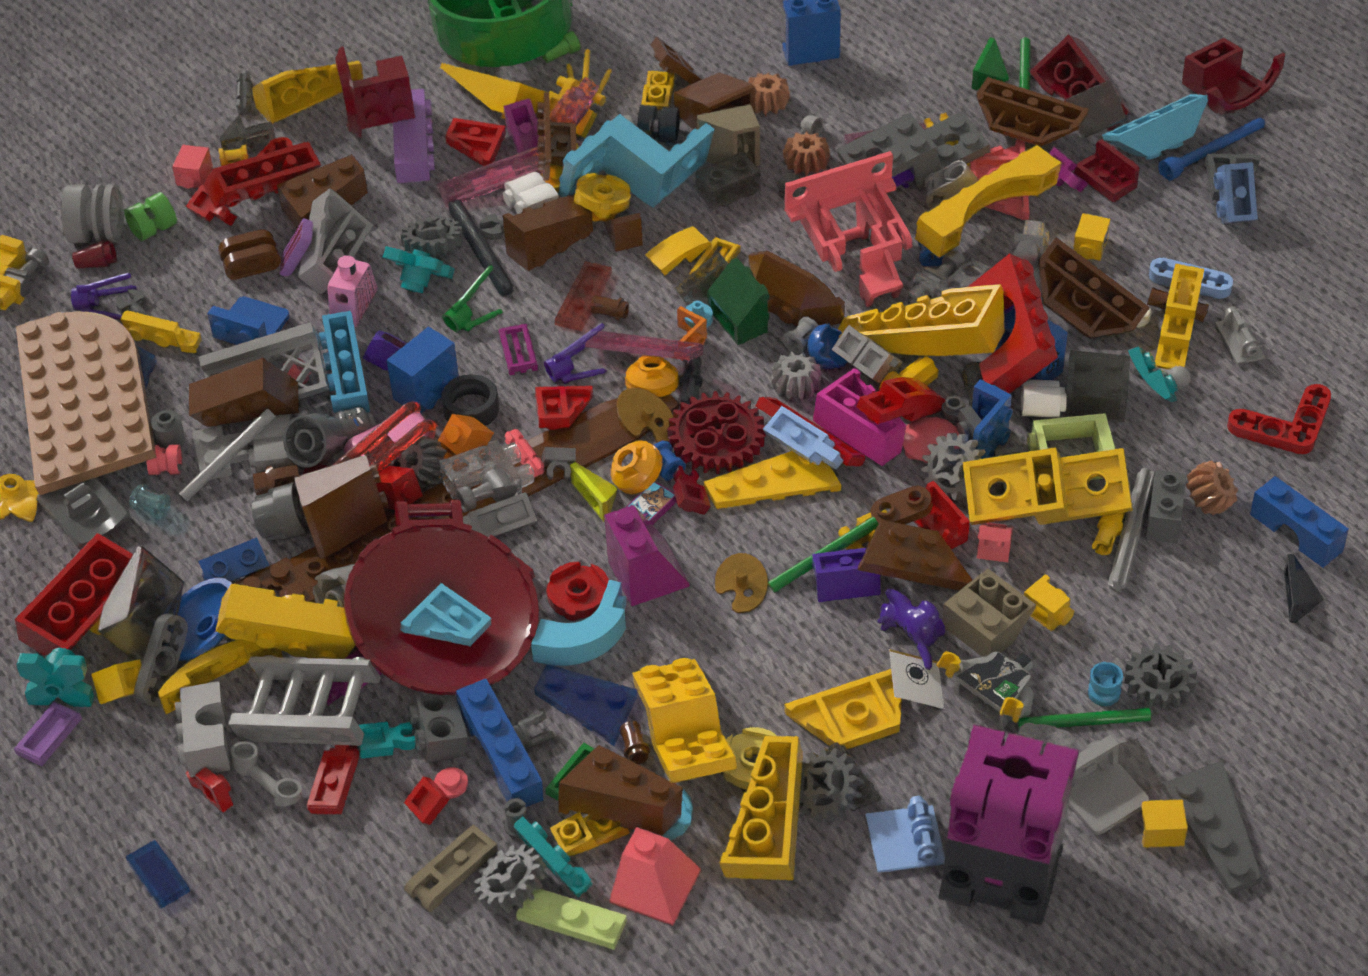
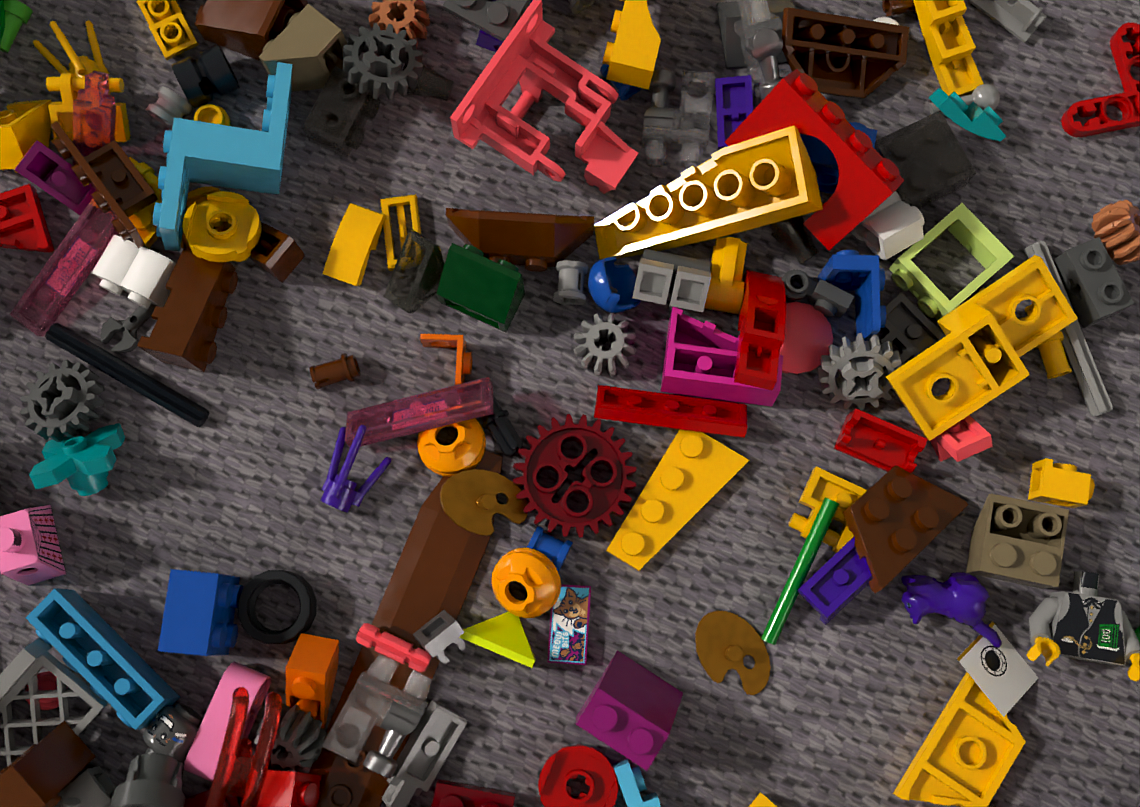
camera: 35 degrees left, 30 degrees up
(381, 348) = (134, 595): dark purple rock -> none
(460, 314) = (175, 491): green plant -> none
(521, 365) = (296, 514): magenta tile -> none
(561, 405) = (381, 549): red wing -> none
(577, 304) = (292, 371): clear red tile -> none
(689, 494) = (605, 577): dark red plate -> none
(702, 310) = (444, 325): medium azure tile -> none
(774, 158) = (382, 61): none -> dark grey gear
(802, 438) = (682, 438): light blue hinge -> none
(901, 506) = (844, 463): reddish brown plate -> none

